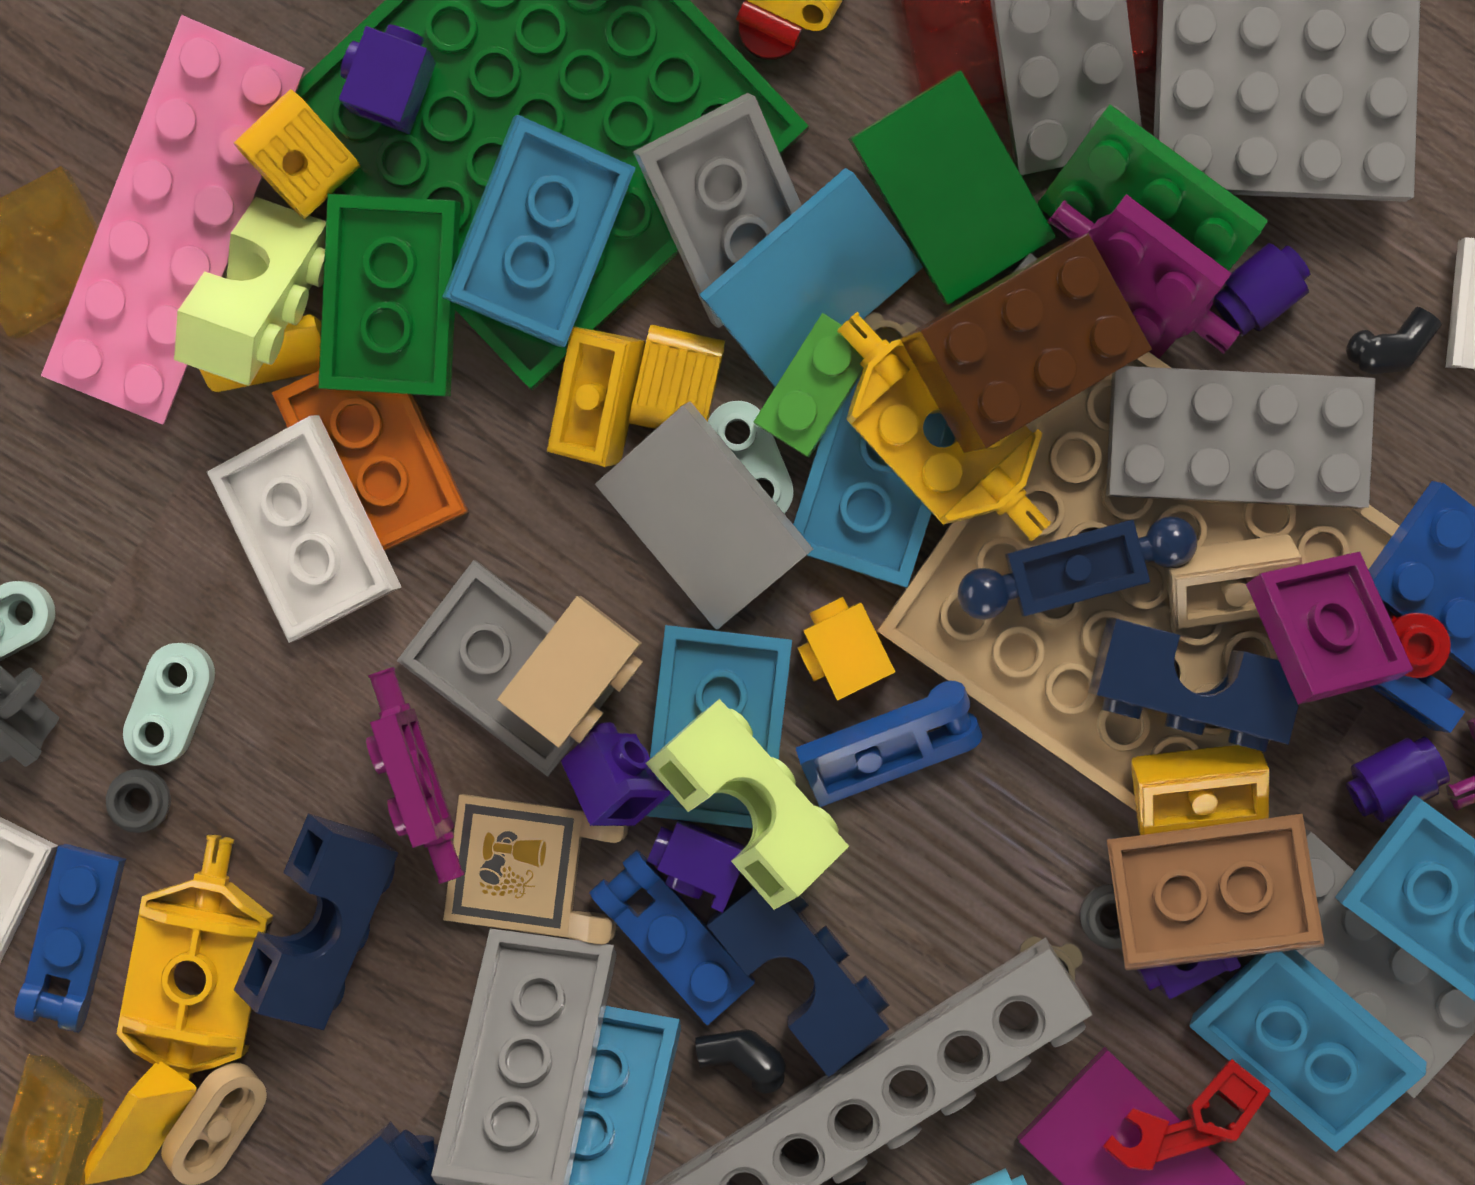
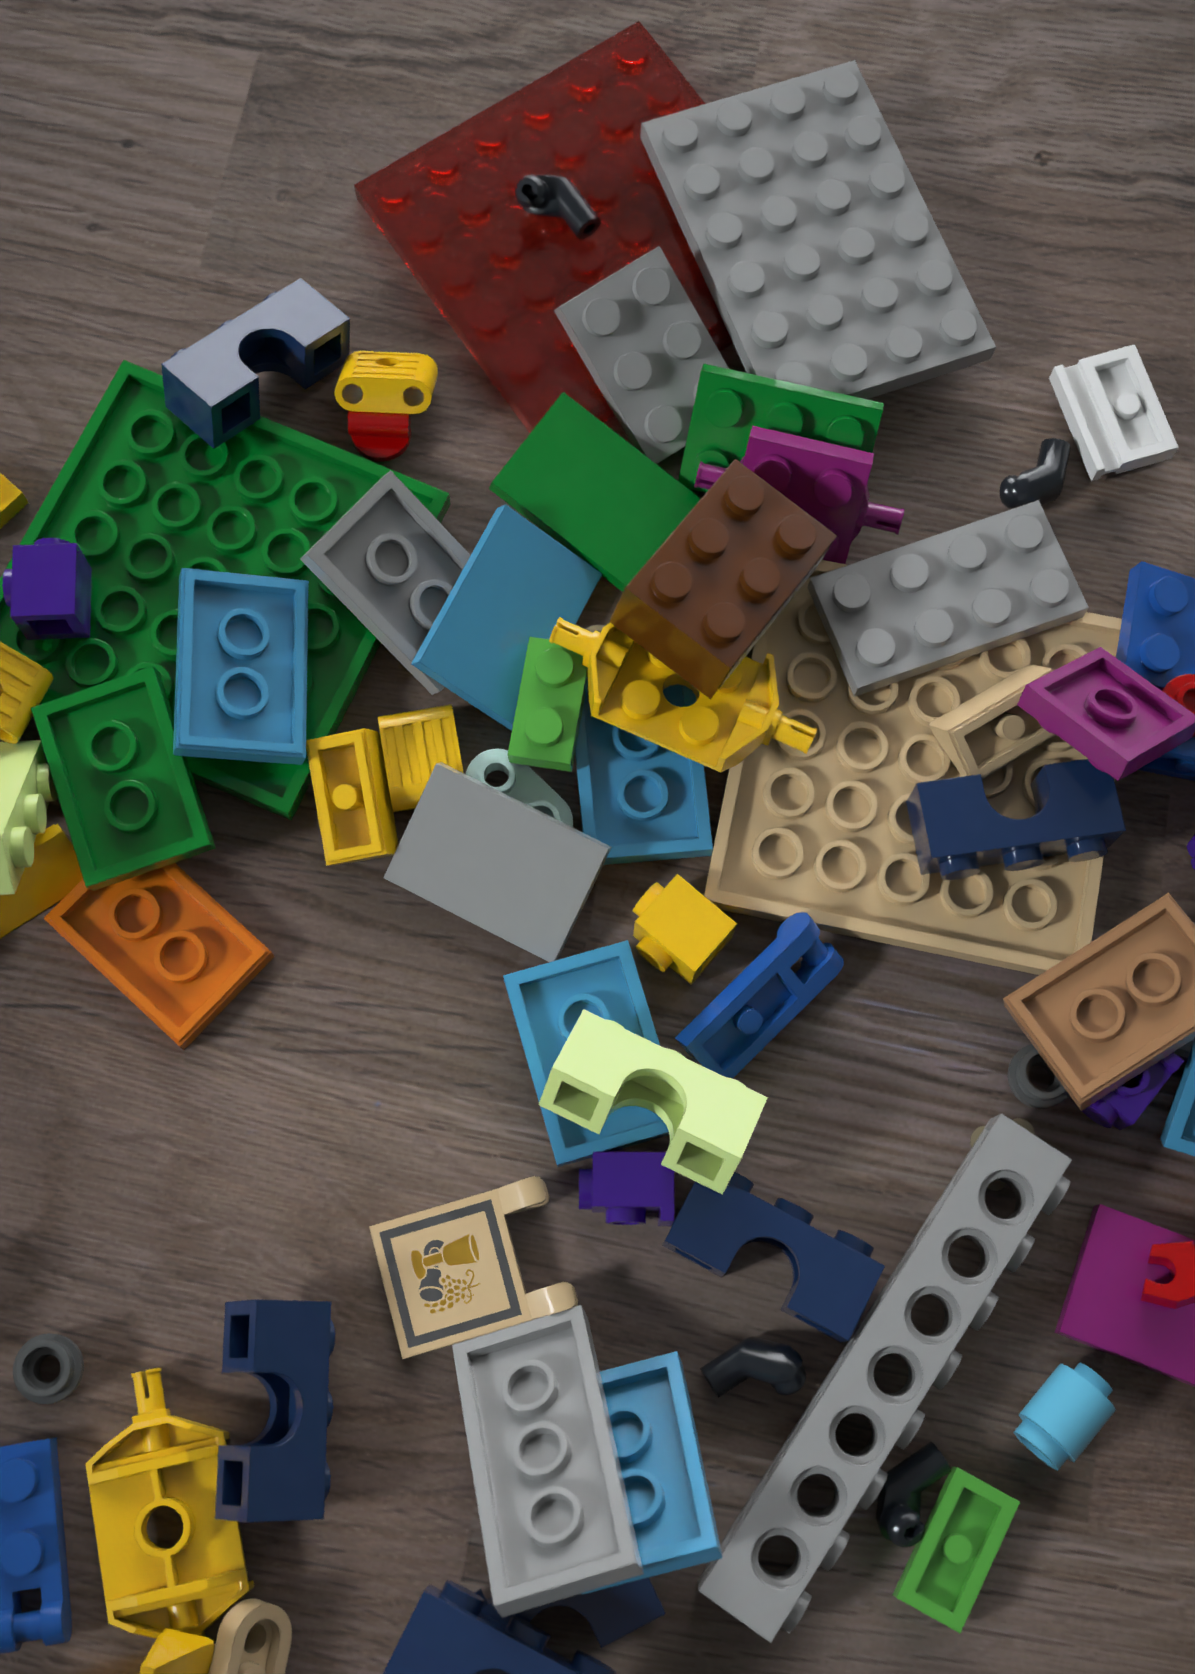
camera: 20 degrees left, 15 degrees down
(170, 706) = (48, 1257): light aqua plate -> none
(304, 528) = (120, 1031): white tile -> none
(418, 800) = (328, 1238): magenta plate -> none
(476, 649) = (372, 1082): light grey tile -> none
(571, 672) = (432, 1048): tan brick -> none
(613, 777) = (514, 1136): dark purple brick -> none
(673, 939) = (638, 1278): blue plate -> none
(1077, 568) = (858, 763): dark blue plate -> none
(1200, 788) = (1063, 915): yellow slope -> none
(1262, 288) = (906, 471): dark purple brick -> none

